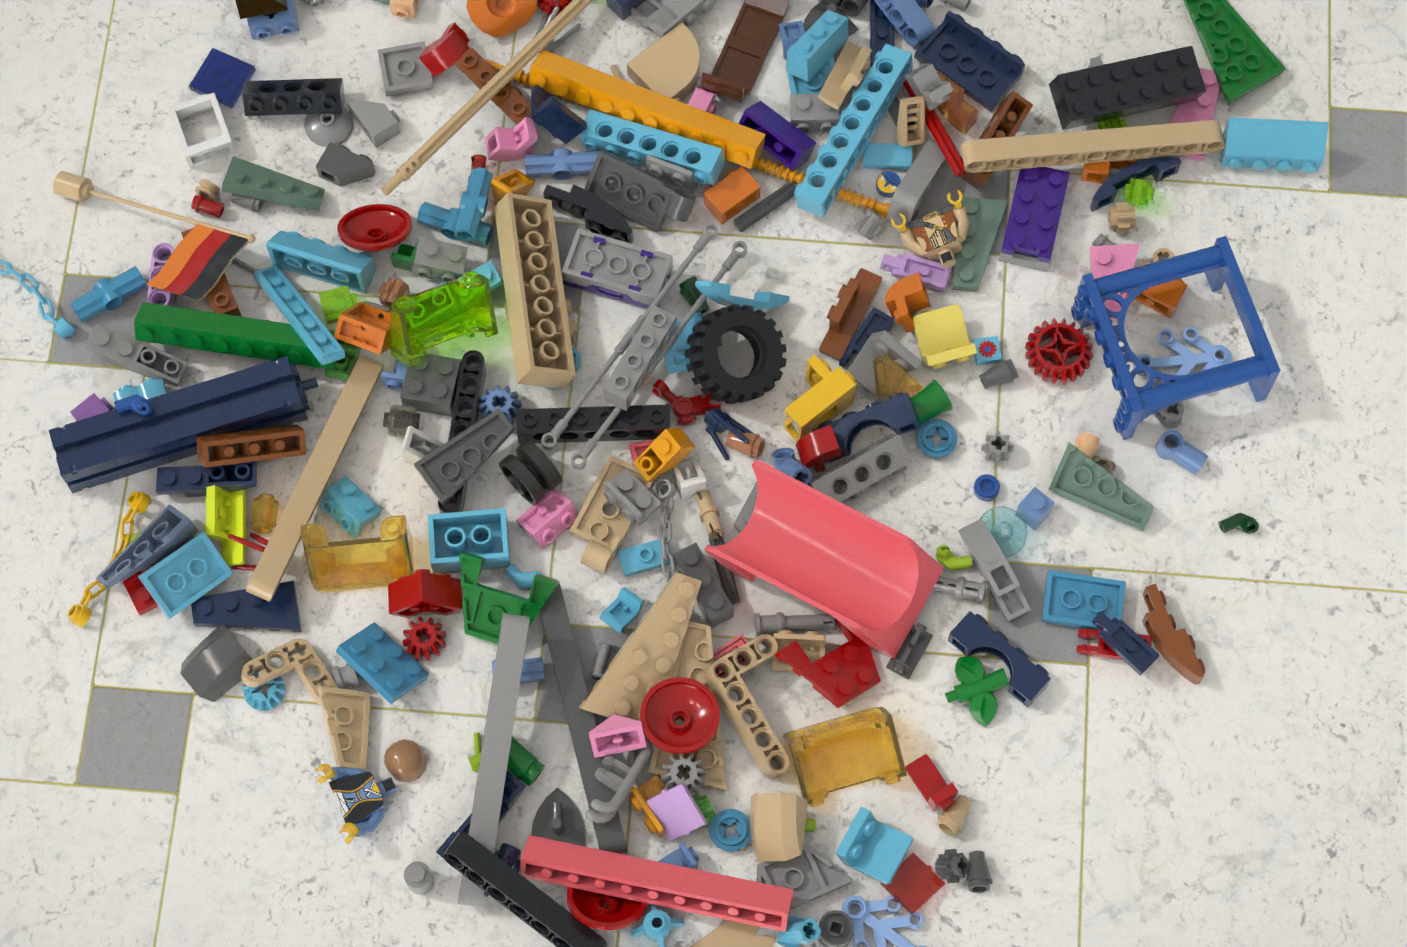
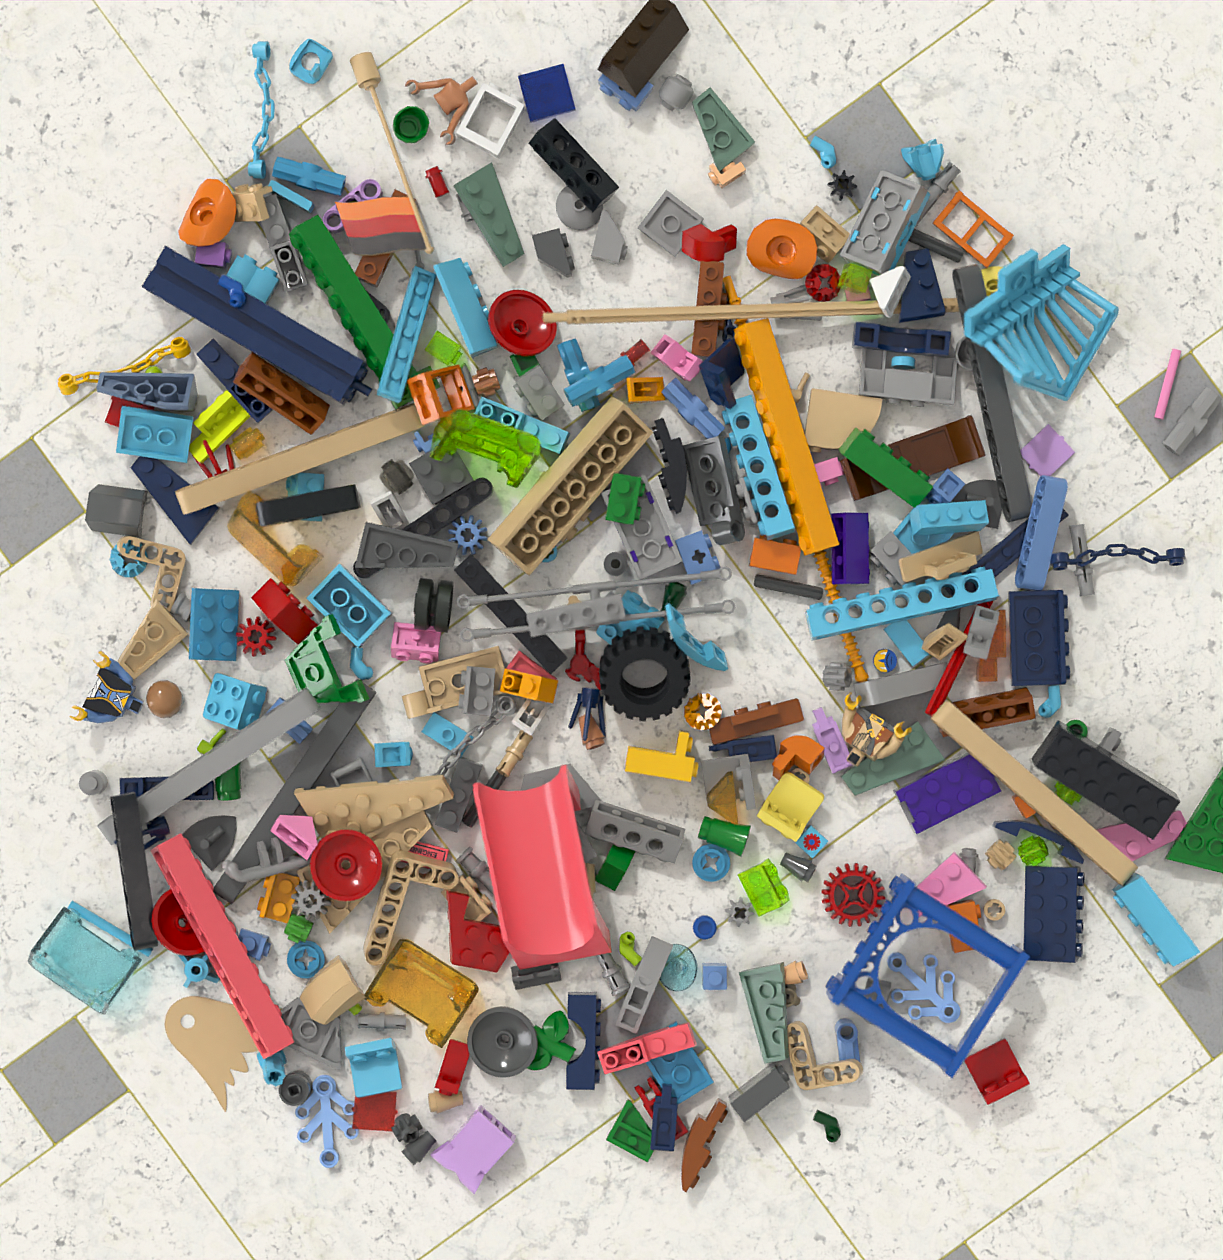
camera: 55 degrees right, 20 degrees up
(28, 209) = (318, 70): none -> medium azure piece
(59, 386) = (208, 215): none -> orange hat
(83, 350) = (250, 202): none -> tan bracket
(111, 318) = (292, 197): none -> medium azure tile
(145, 186) = (410, 124): none -> green hair
(155, 146) = (449, 99): none -> nougat piece
(207, 188) = (448, 169): tan bush -> none
(357, 498) = (307, 505): none -> black beam
(458, 702) = (233, 701): none -> medium azure bracket
(525, 90) = (728, 330): none -> dark blue hand
(583, 254) = (624, 498): none -> green bracket
(627, 312) = (623, 564): none -> dark grey brick
(671, 241) = (686, 548): none -> medium blue brick
(676, 811) = (282, 917): lavender piece -> none
(737, 58) = (885, 467): none -> green brick
(785, 461) = (594, 783): medium blue piece -> none
(815, 338) = (712, 715): none -> light orange gear
(818, 448) = (624, 792): red brick -> none
(840, 810) = (382, 1021): none -> light grey pin
(873, 506) = (614, 866): none -> green slope
(896, 413) = (694, 826): dark blue arch -> none
(946, 700) = (490, 1050): none -> dark grey dish
(993, 414) = (764, 887): none -> clear neon green bracket
(1019, 822) = (475, 1148): none -> lavender piece
(1031, 91) = (1052, 704): none -> medium azure arm
(1050, 604) = (646, 1047): none -> coral slope
(1114, 684) = (631, 1132): none -> green wing
(1165, 547) = (759, 1091): none -> dark grey brick
(1185, 492) = (817, 1071): none -> tan beam
(1200, 214) = (1053, 913): none -> dark blue bracket
(1303, 359) = (996, 1071): none -> red bracket

